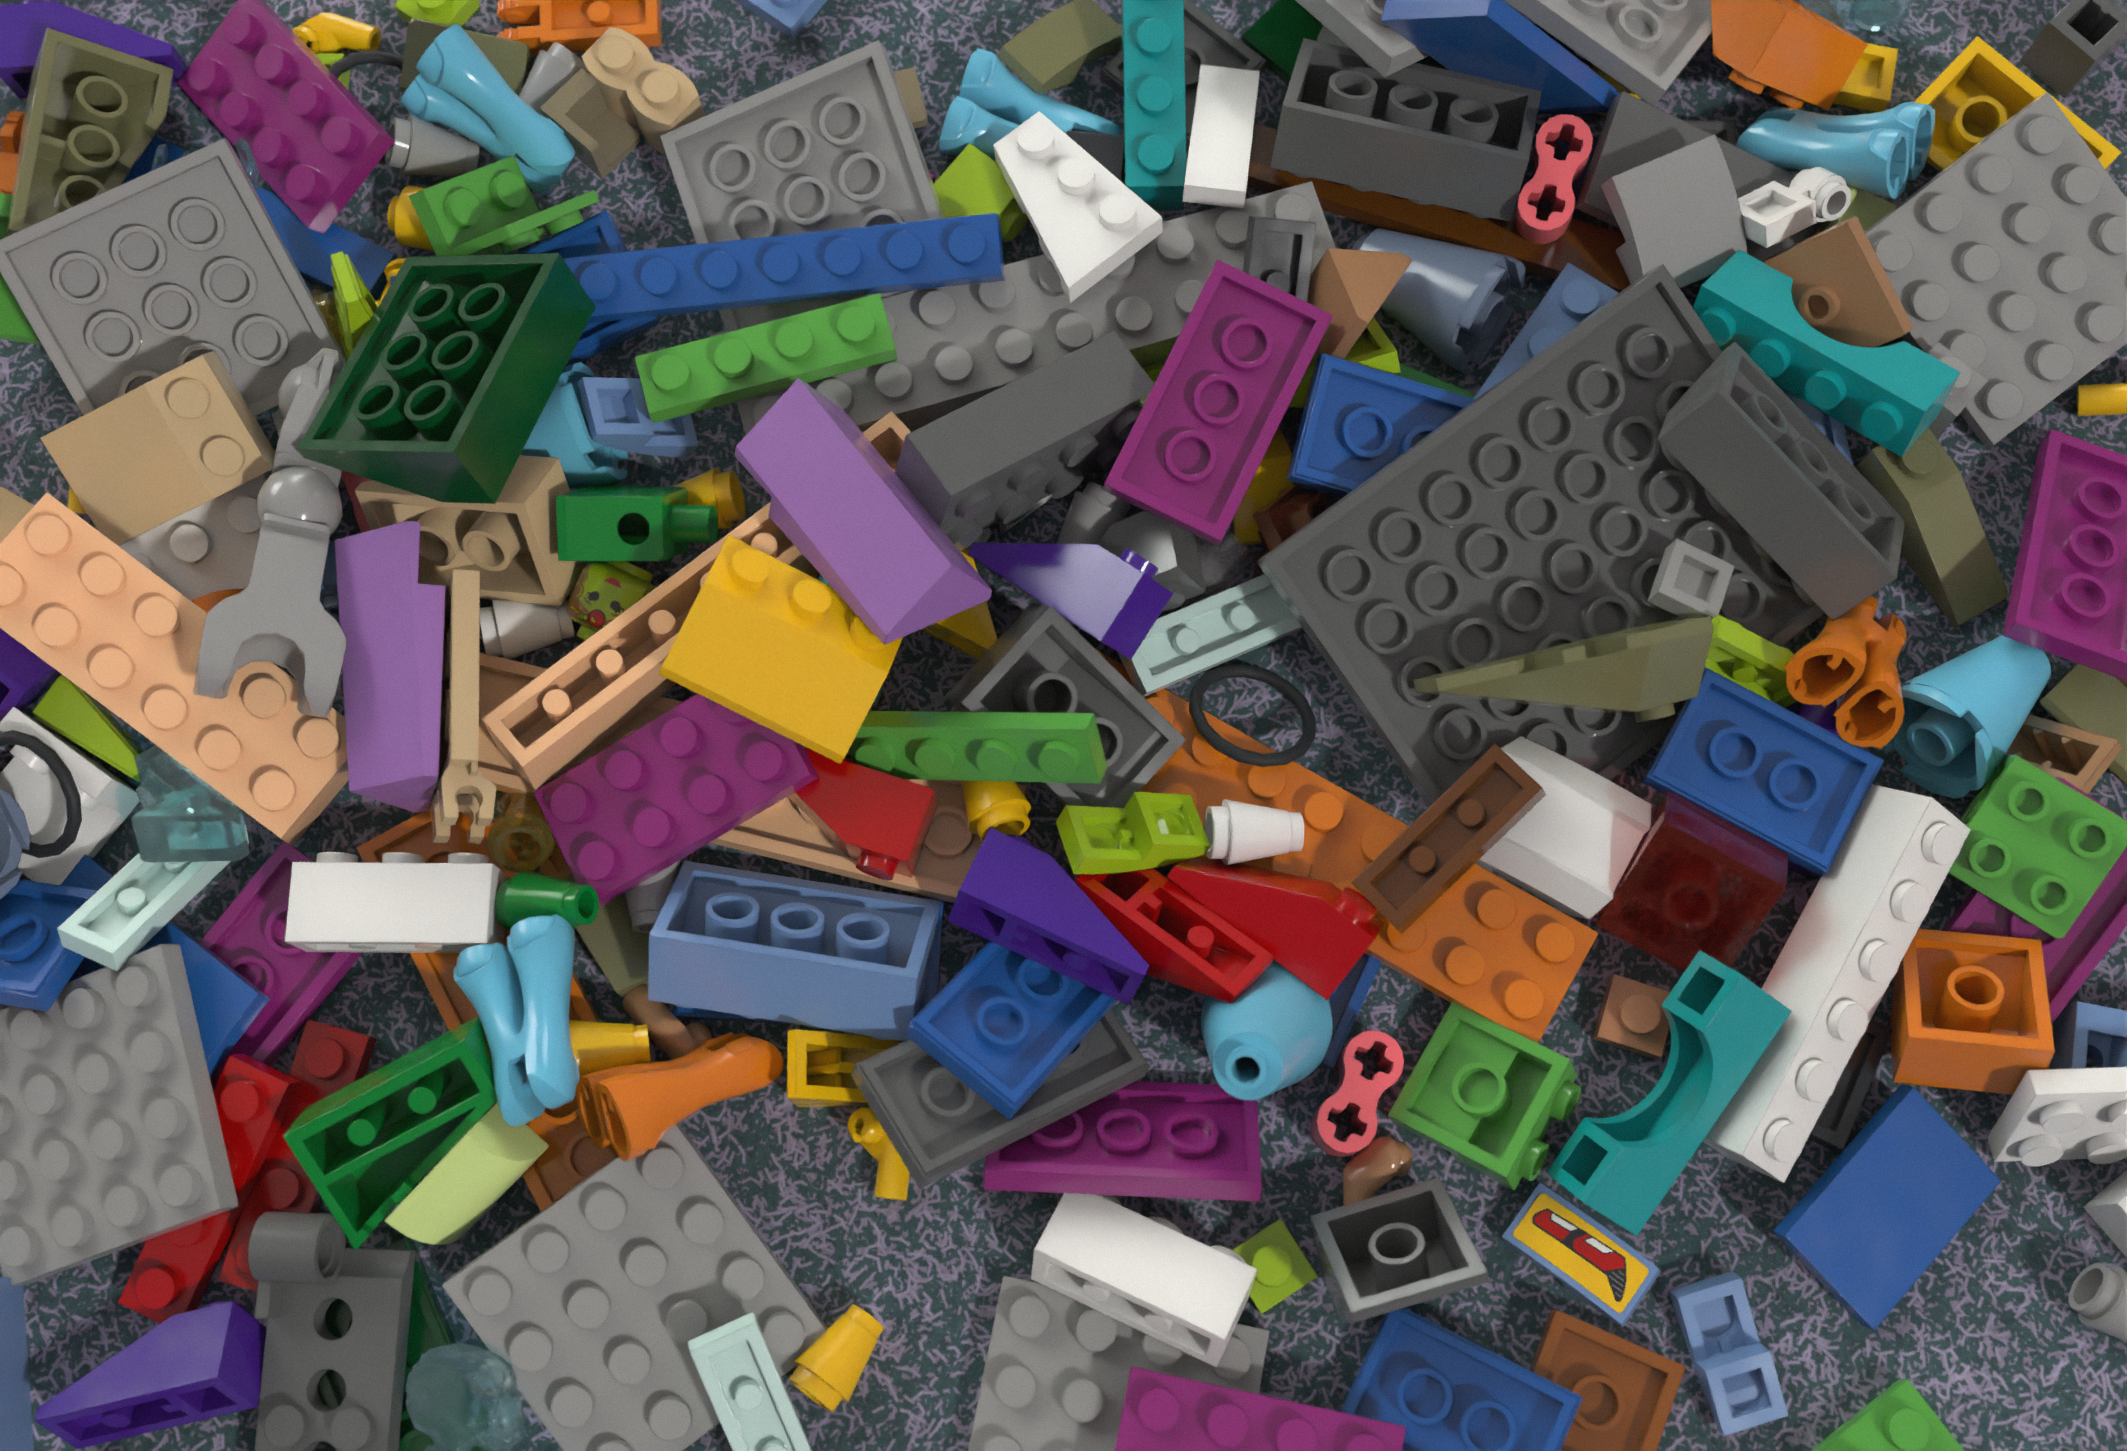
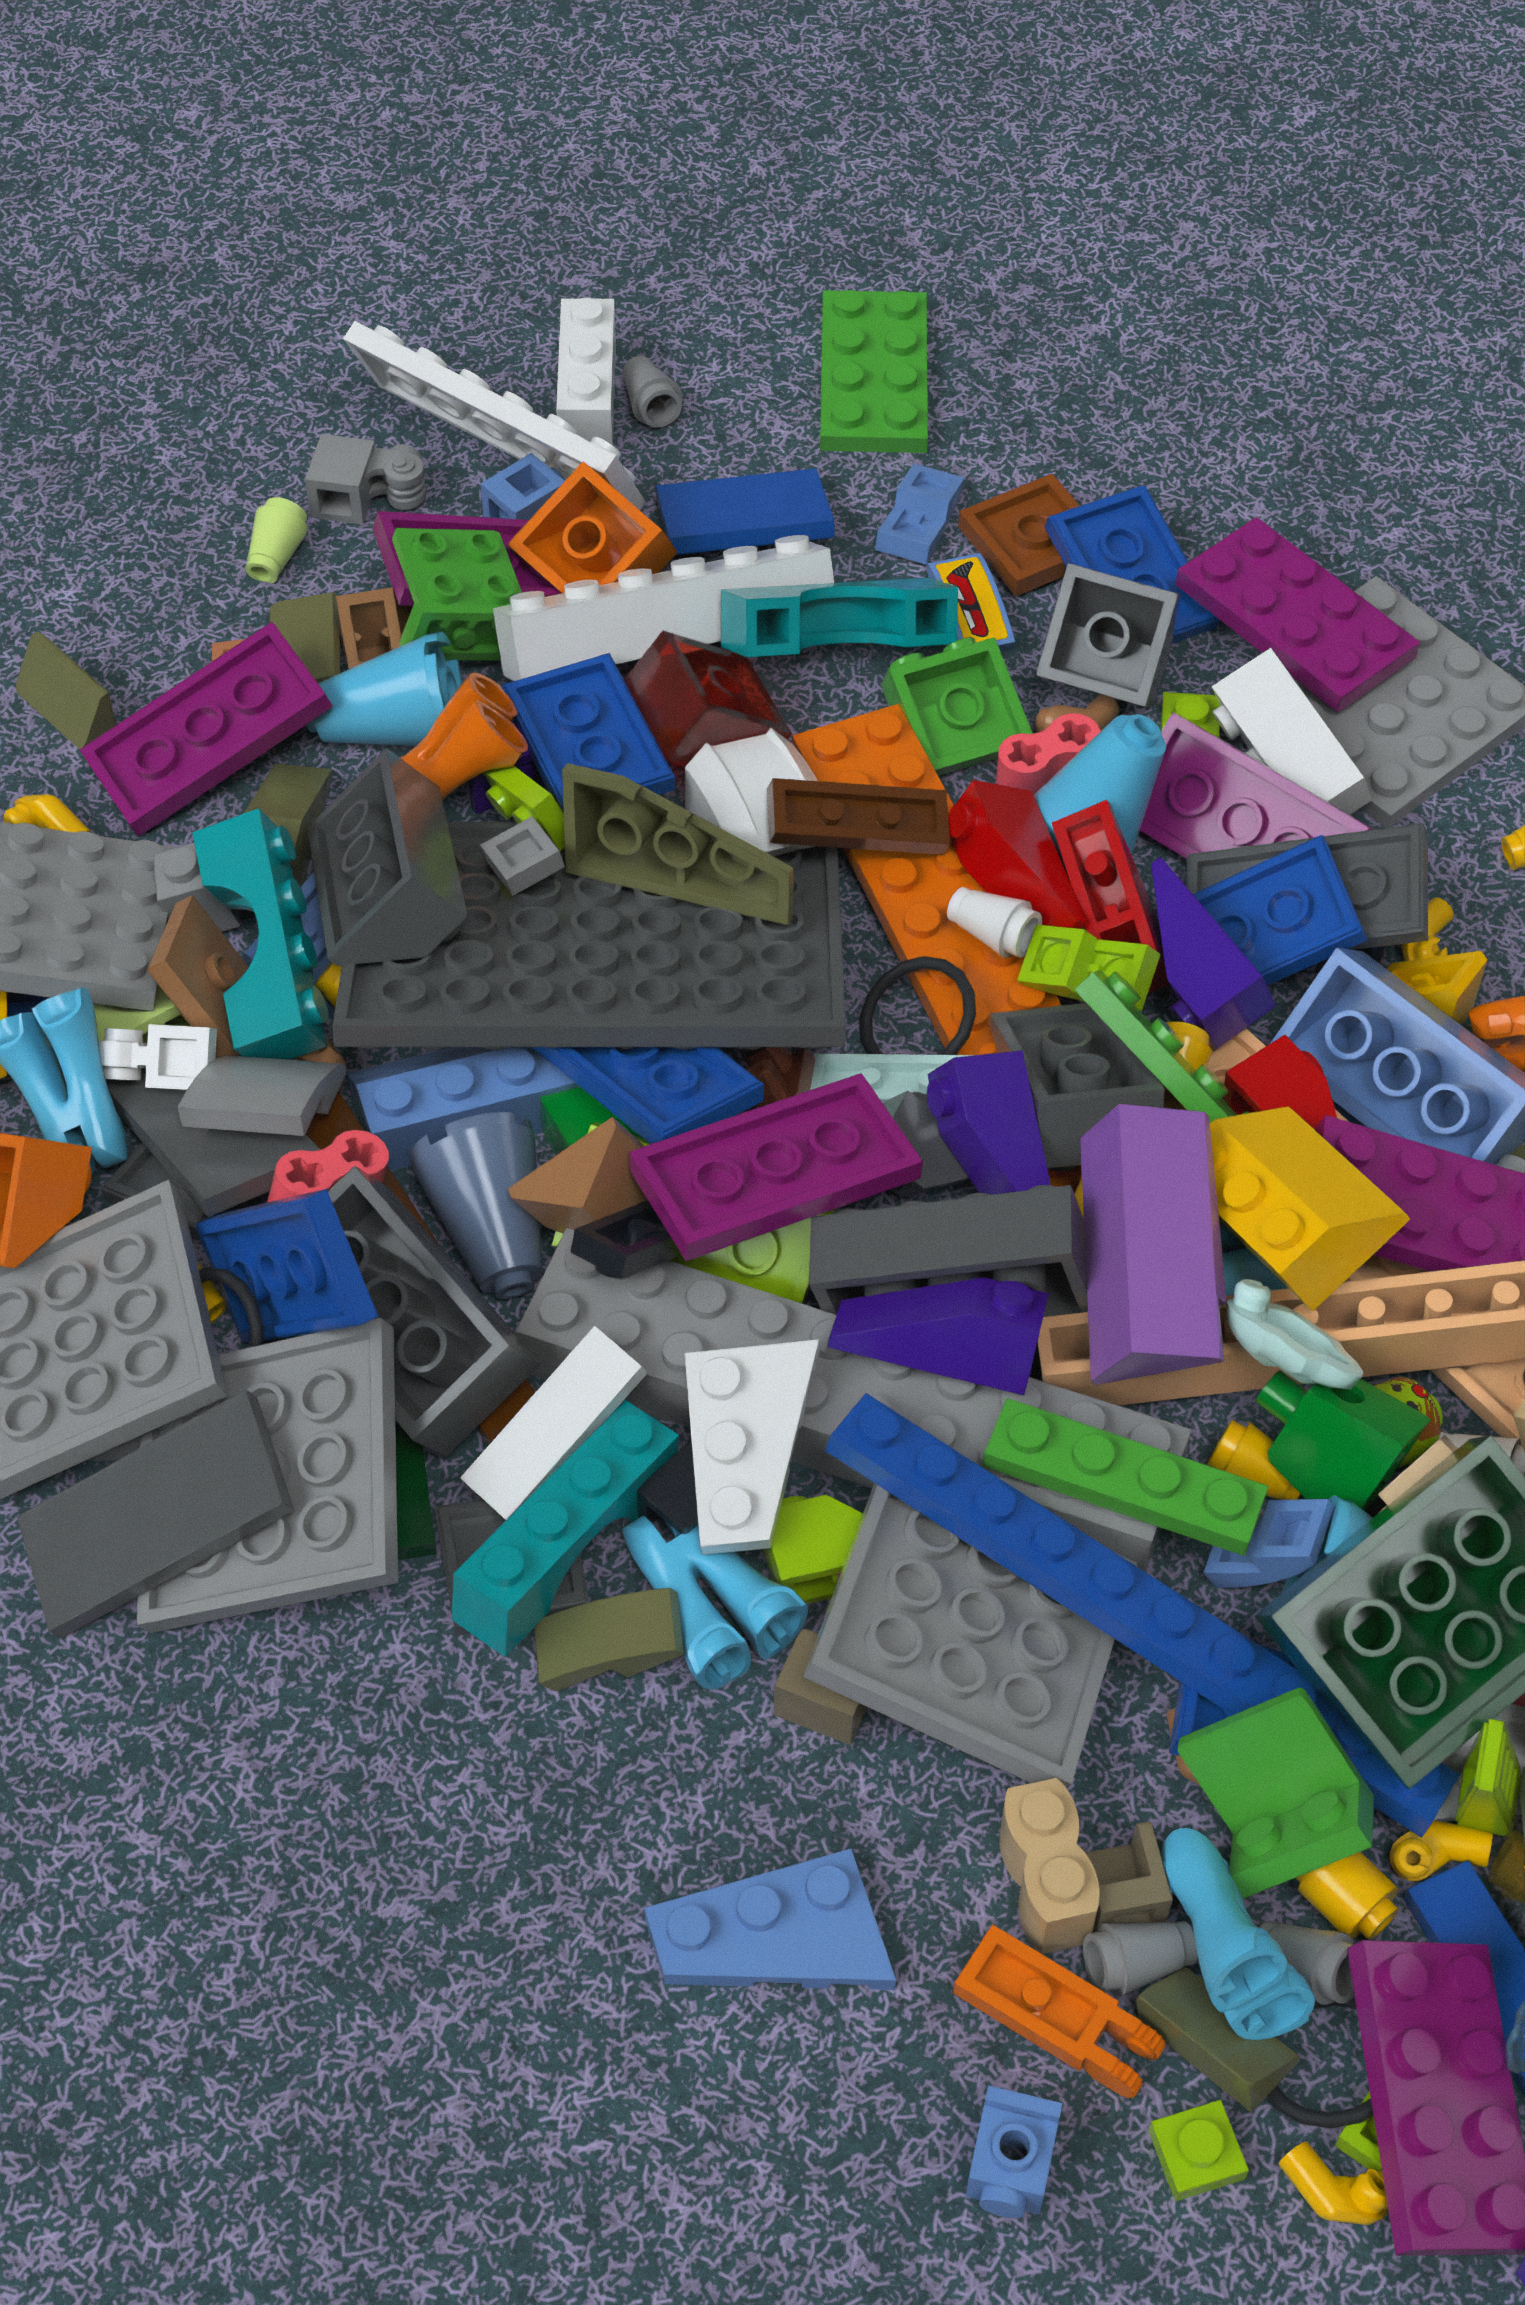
camera: 145 degrees left, 20 degrees down
(691, 521) = (1287, 1339): none -> light aqua arm
(984, 364) = (955, 1329): none -> dark purple slope
(1633, 1017) = (806, 699): nougat plate -> none

